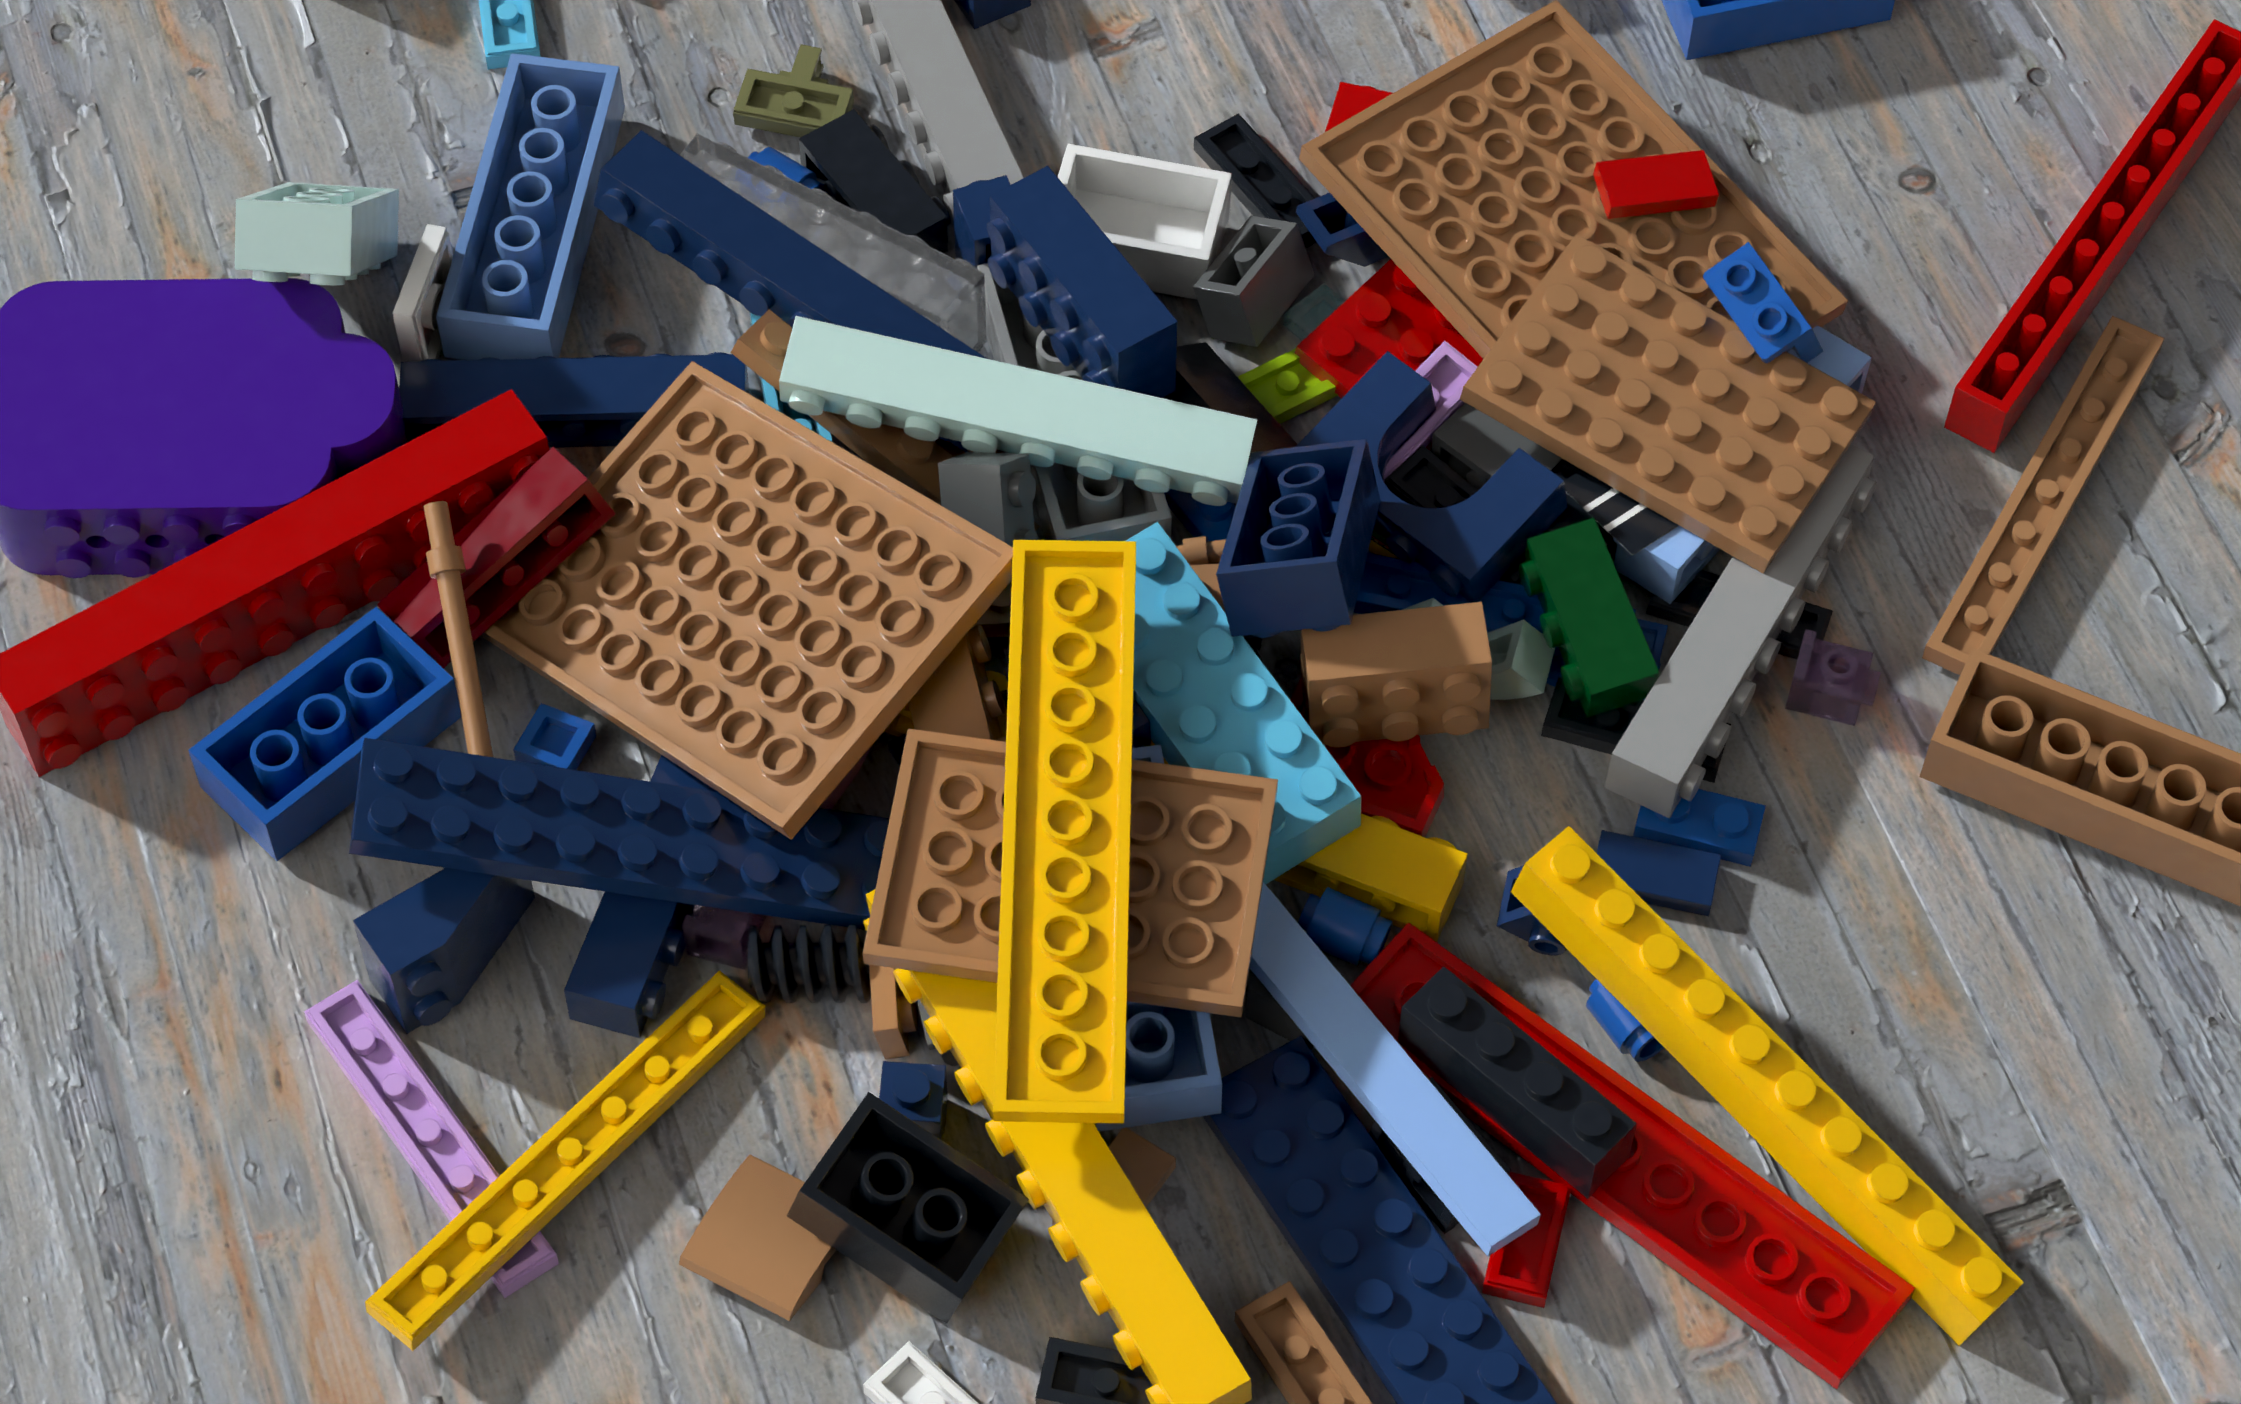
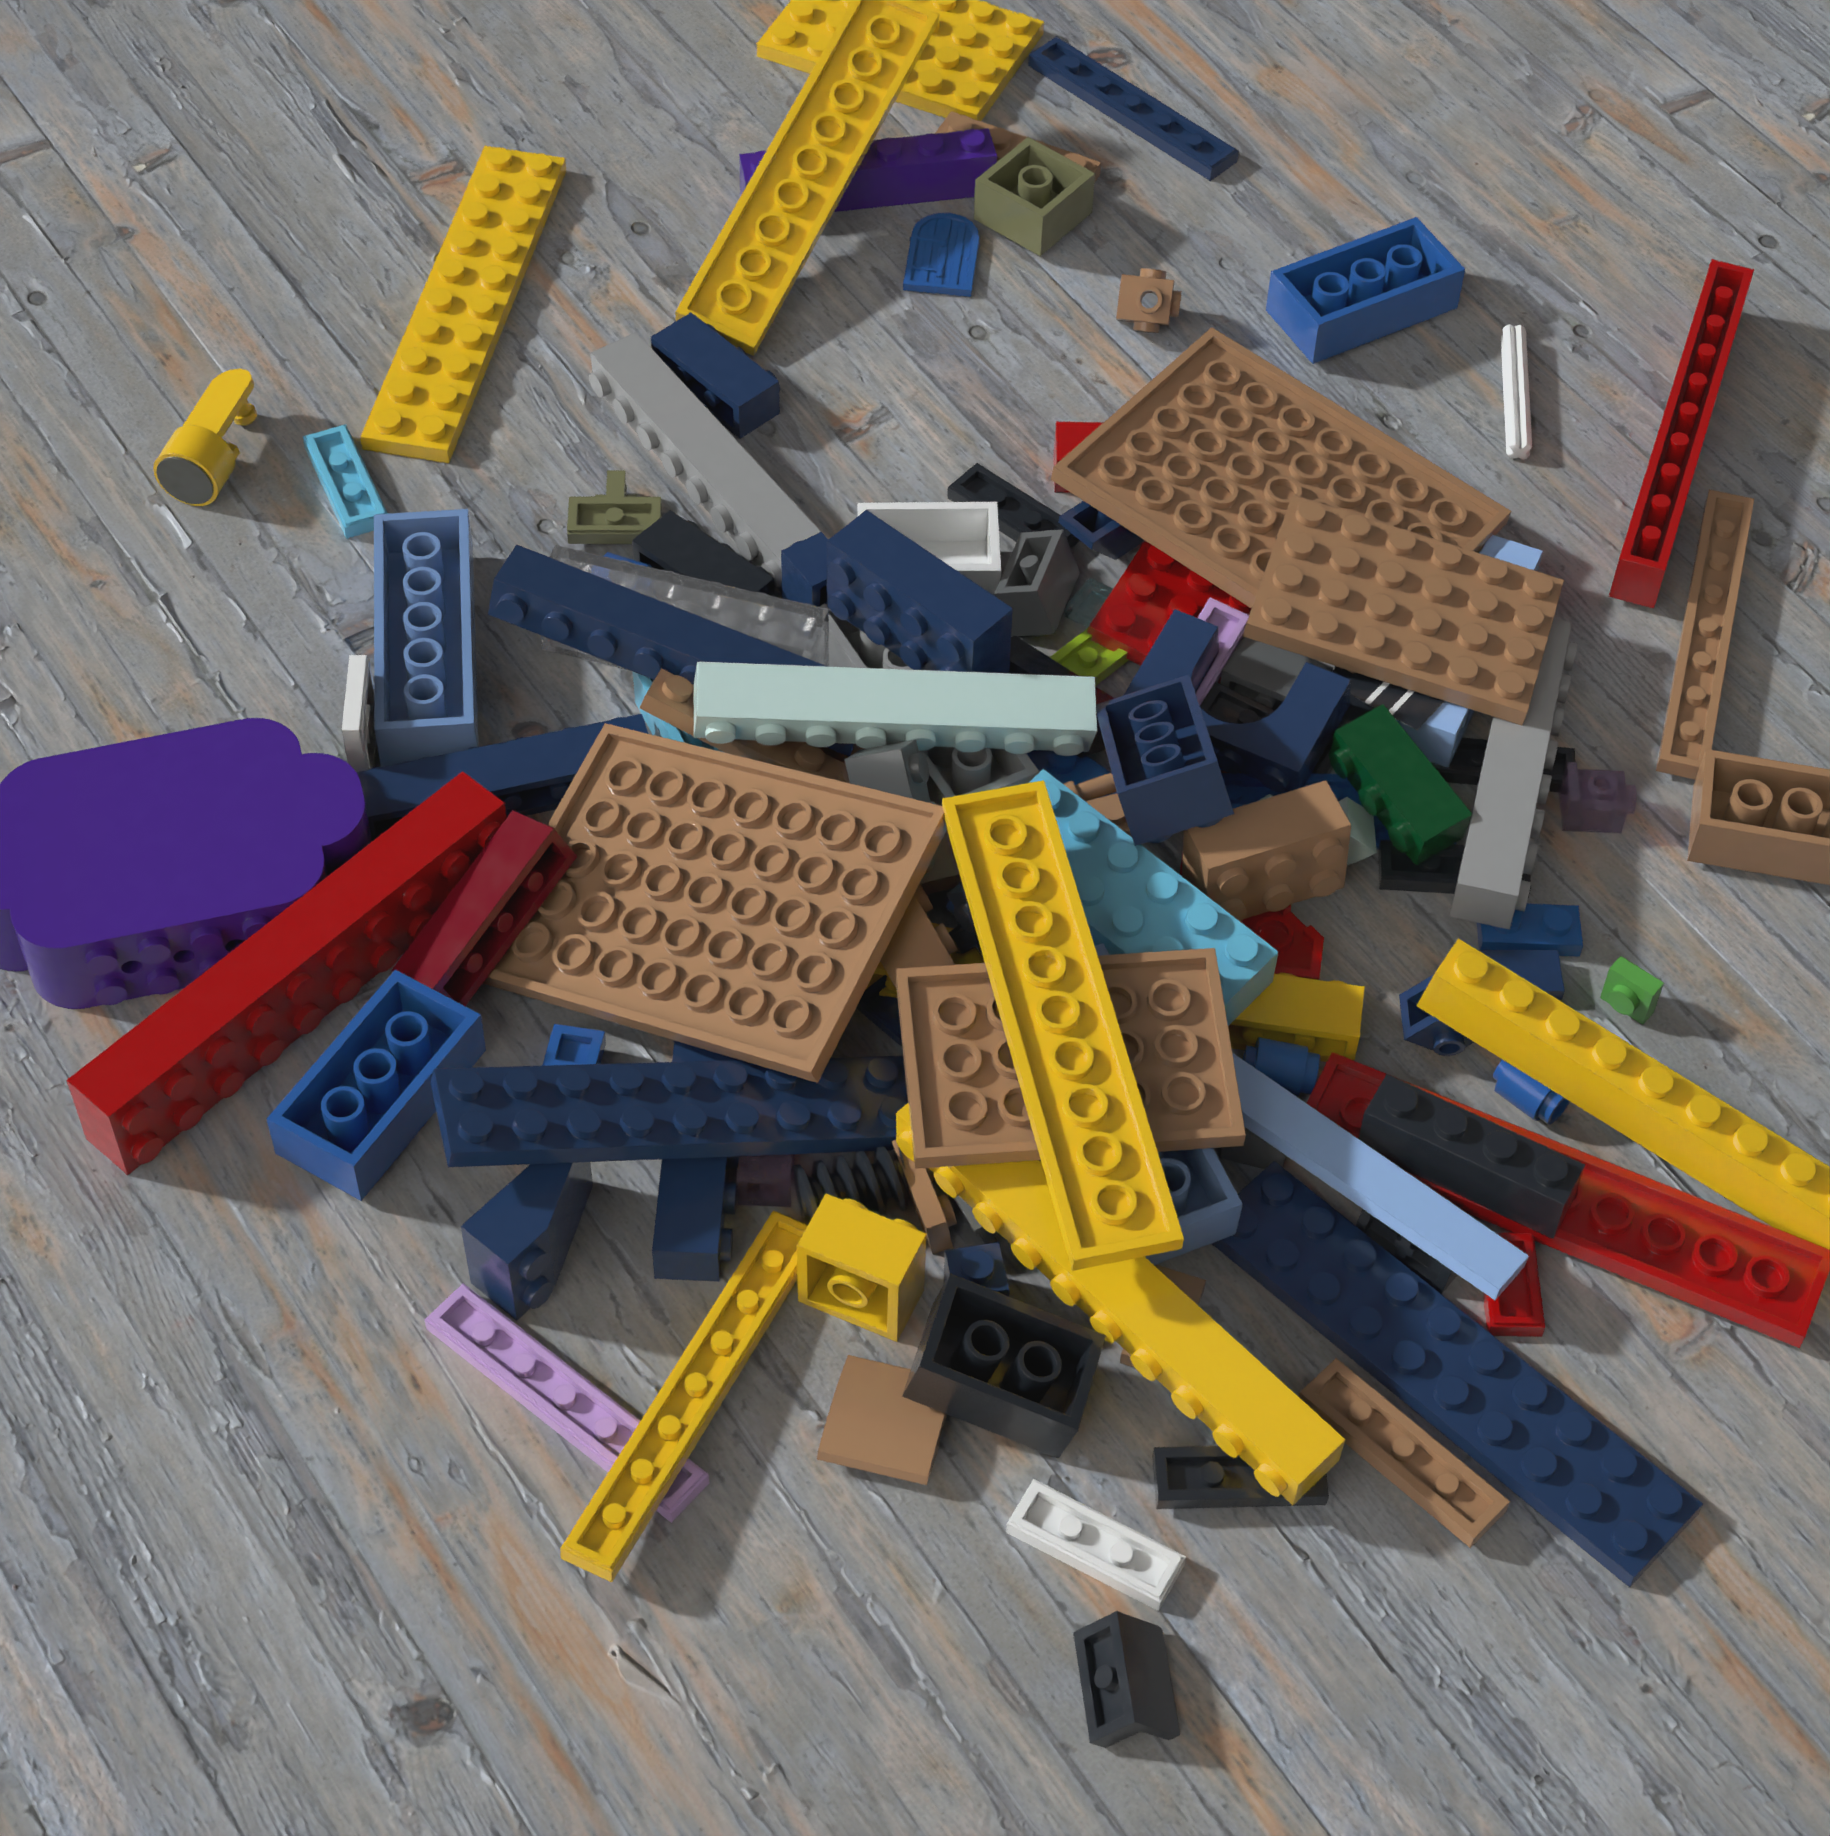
camera: 15 degrees left, 5 degrees down
(316, 232) = (254, 677): light aqua brick -> none
(446, 565) = (451, 921): medium nougat bar -> none
(787, 1058) = (861, 1266): none -> yellow brick
(1655, 184) = (1338, 448): red tile -> none
(1761, 306) = (1457, 521): blue bracket -> none
(1788, 923) = (1631, 990): none -> bright green plate
(1923, 143) = (1516, 392): none -> white axle

